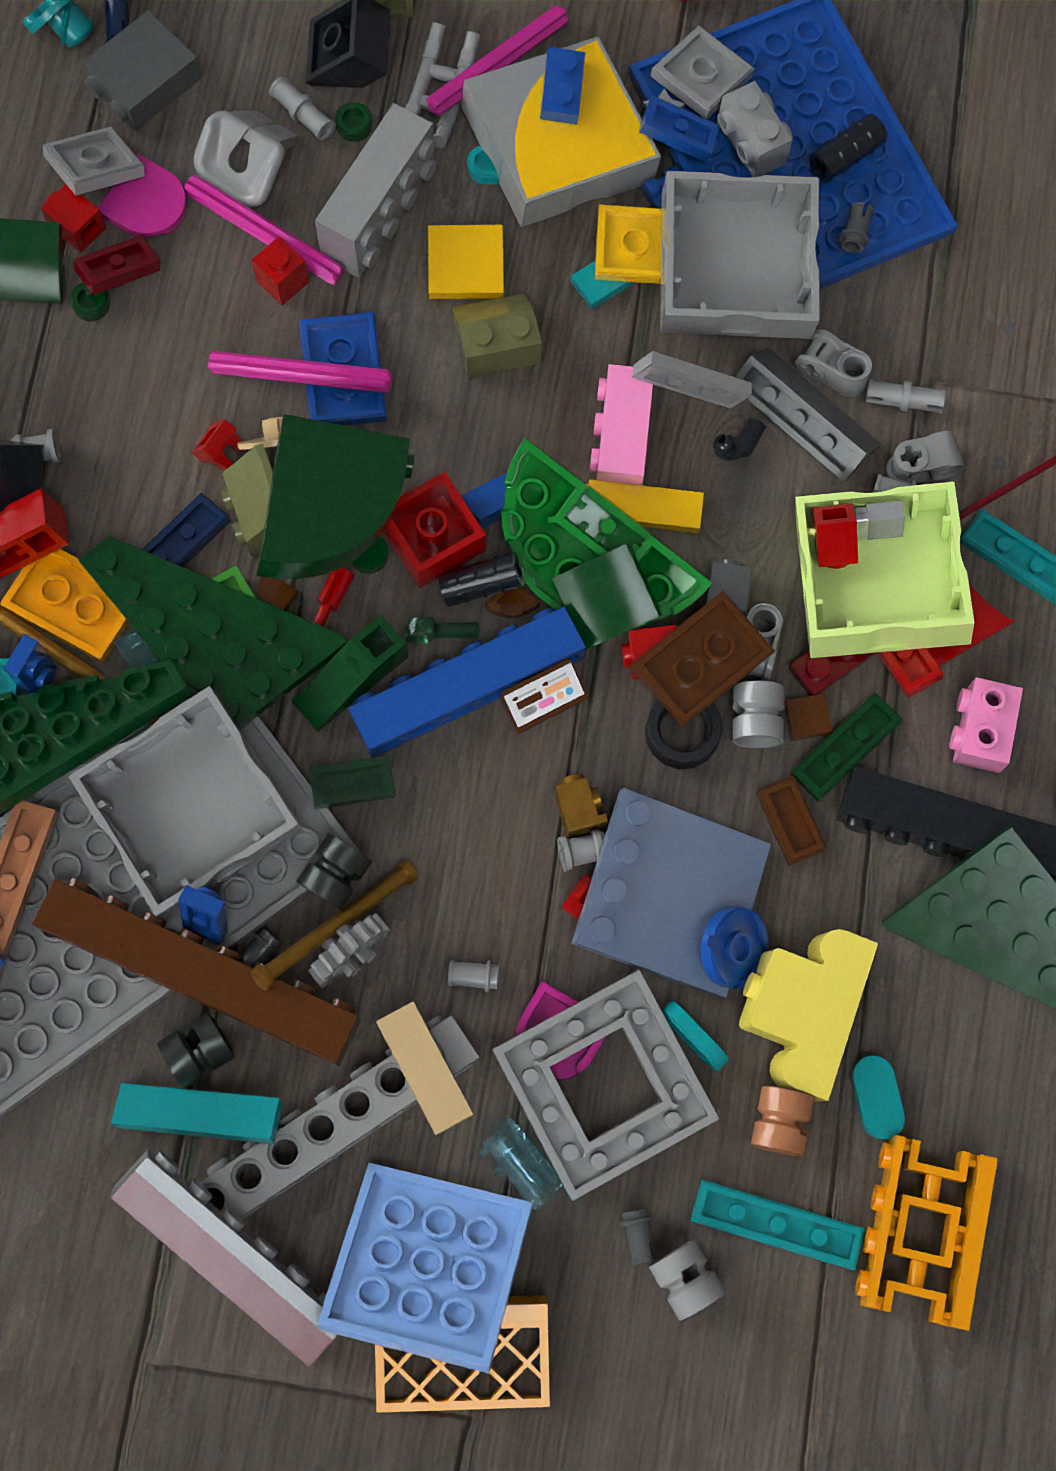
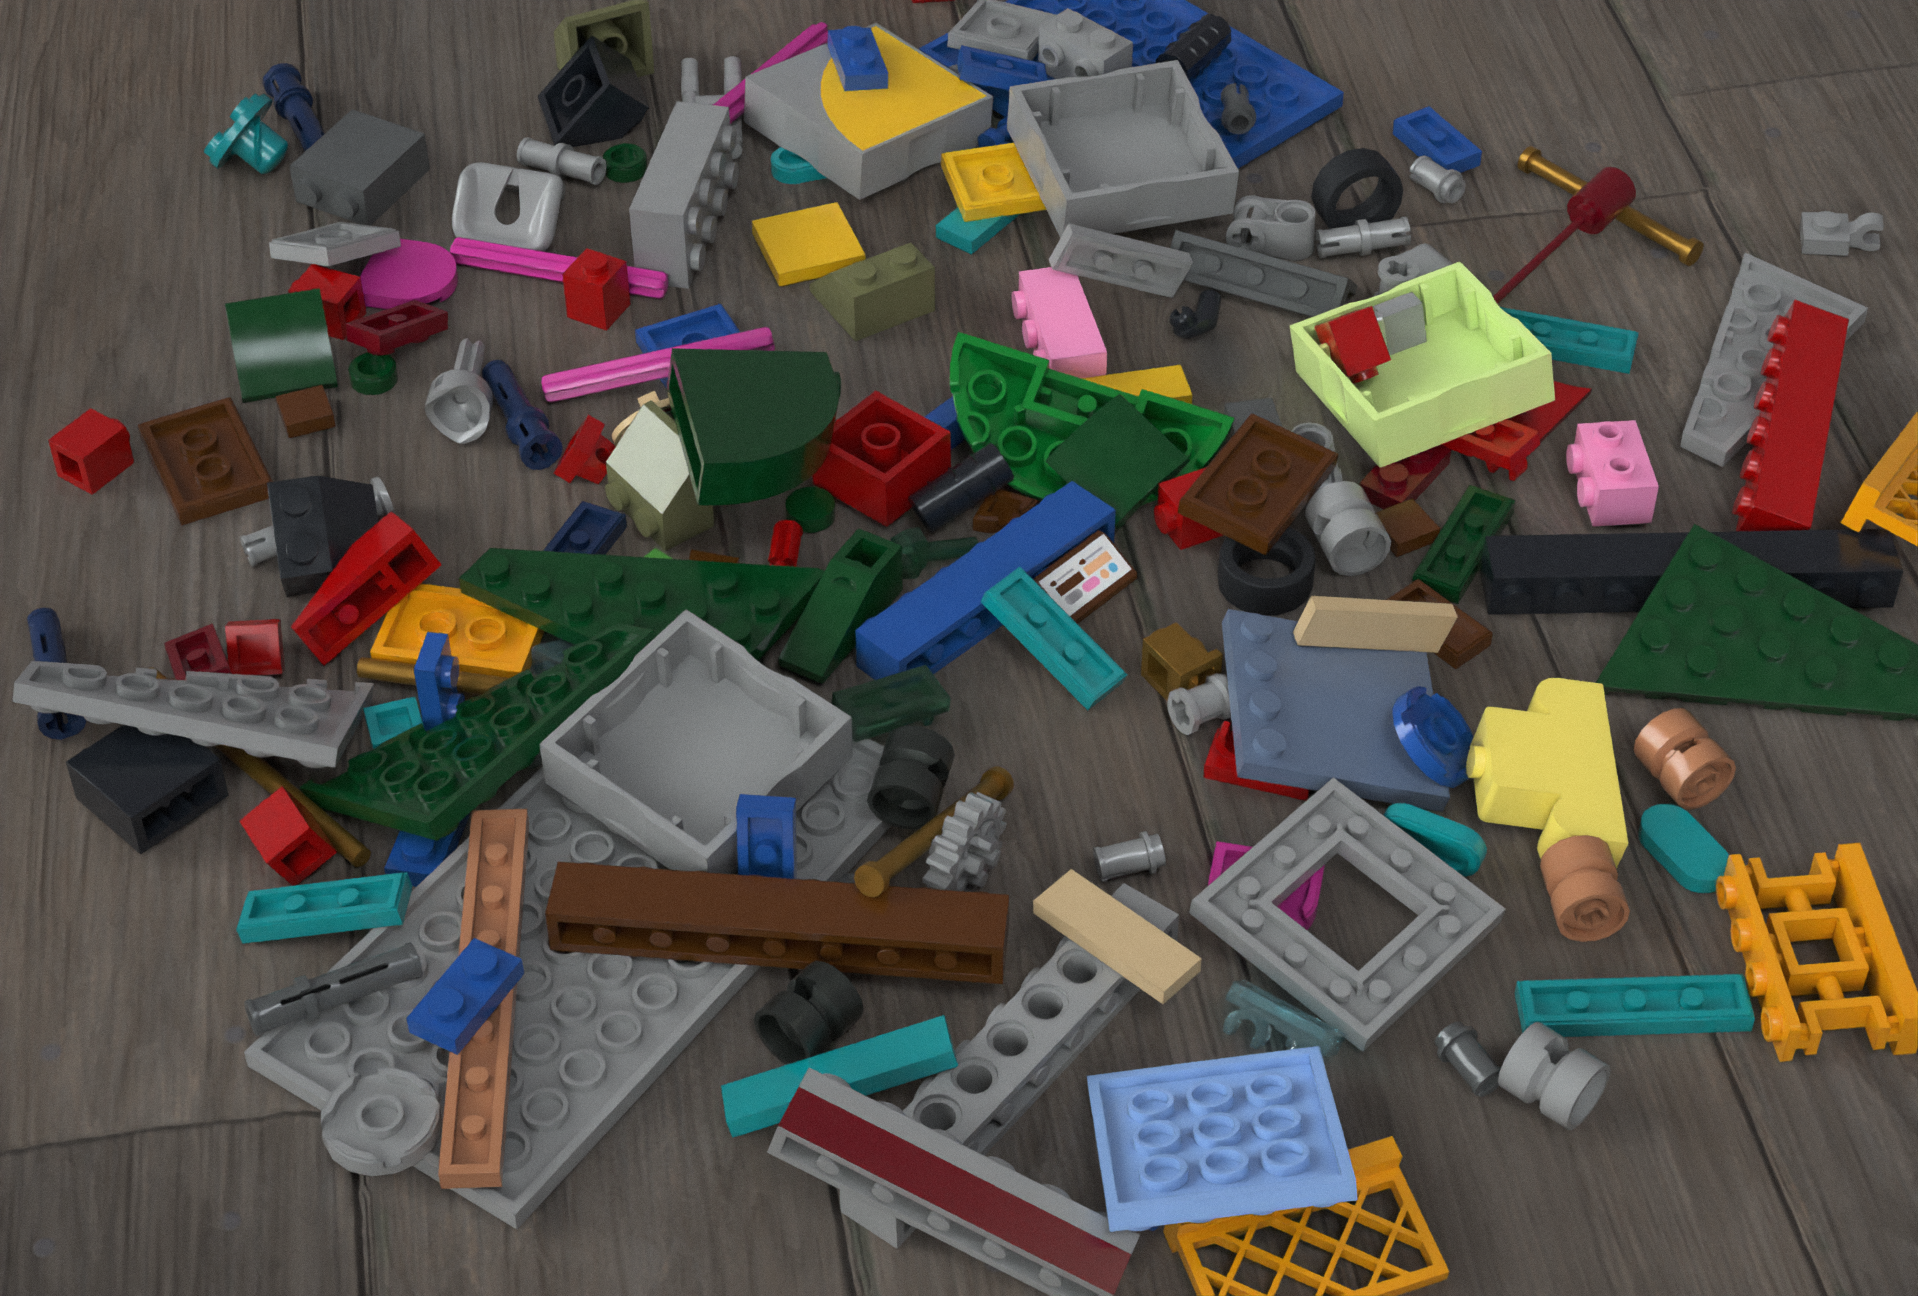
camera: 15 degrees left, 30 degrees down
(27, 328) = (305, 411): none -> reddish brown tile
(138, 363) = (460, 399): none -> light grey piece
(183, 399) = (525, 424): none -> dark blue pin
(494, 754) = (1054, 638): none -> teal tile
(730, 834) = (1374, 624): none -> tan tile
(909, 1011) = (1684, 758): none -> nougat wheel
(915, 356) = (1348, 169): none -> black tyre
(994, 348) = (1445, 184): none -> light grey pin
(1012, 304) = (1434, 137): none -> blue plate

